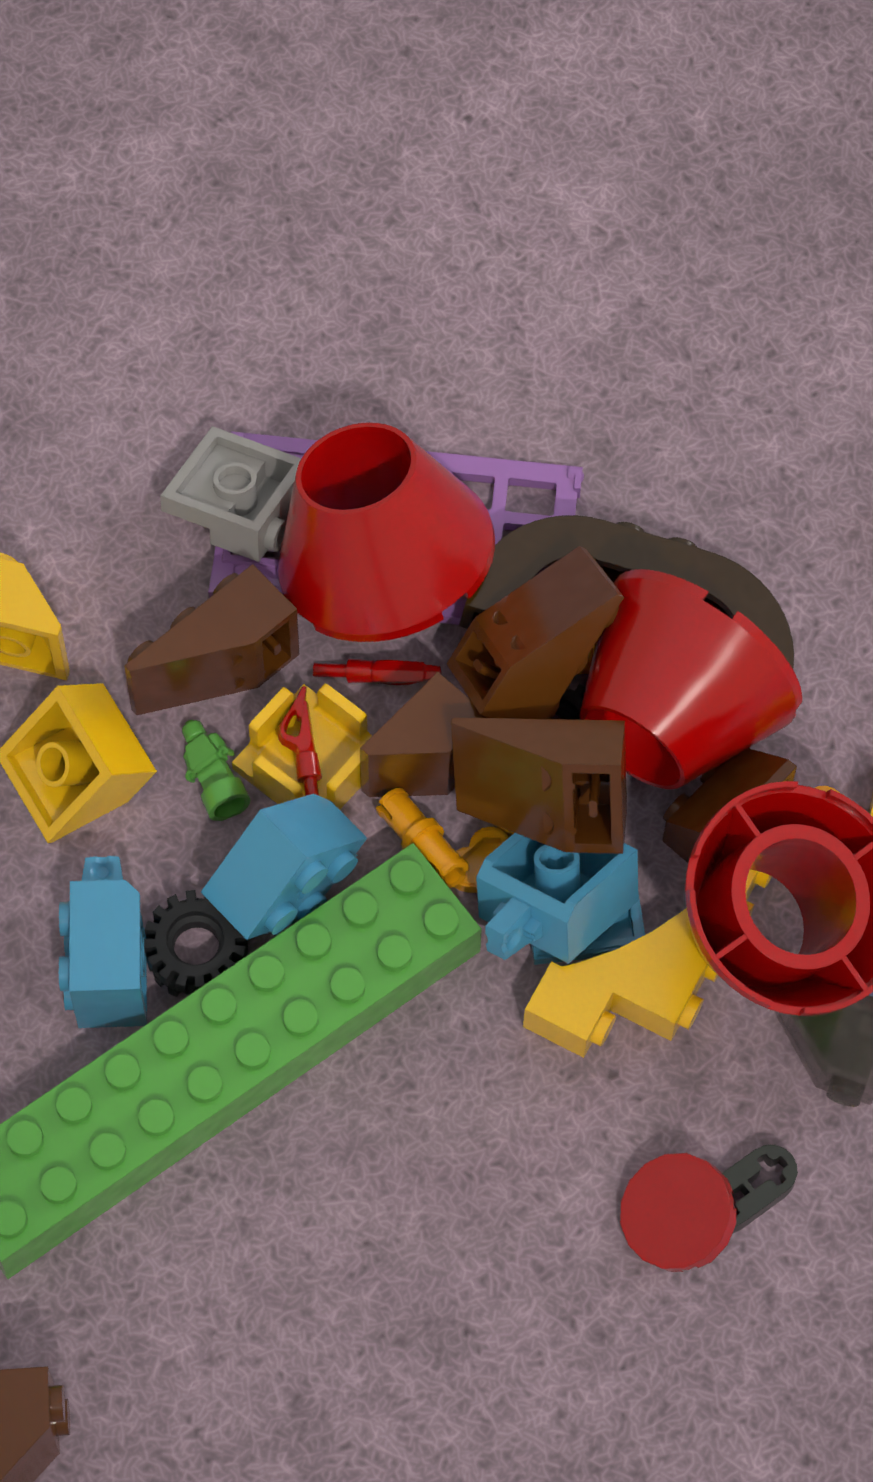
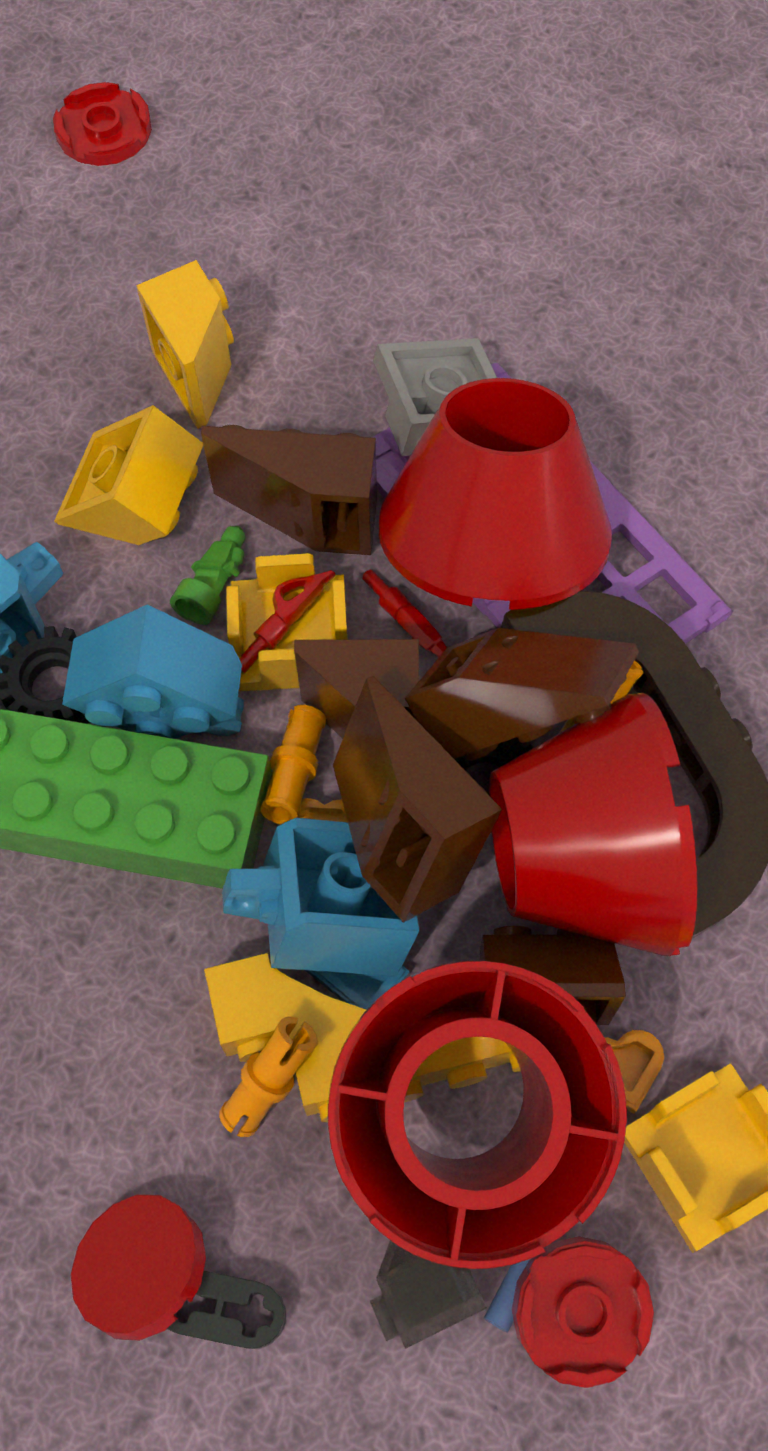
camera: 50 degrees right, 0 degrees up
(634, 1030) = (268, 1076): none -> light orange pin

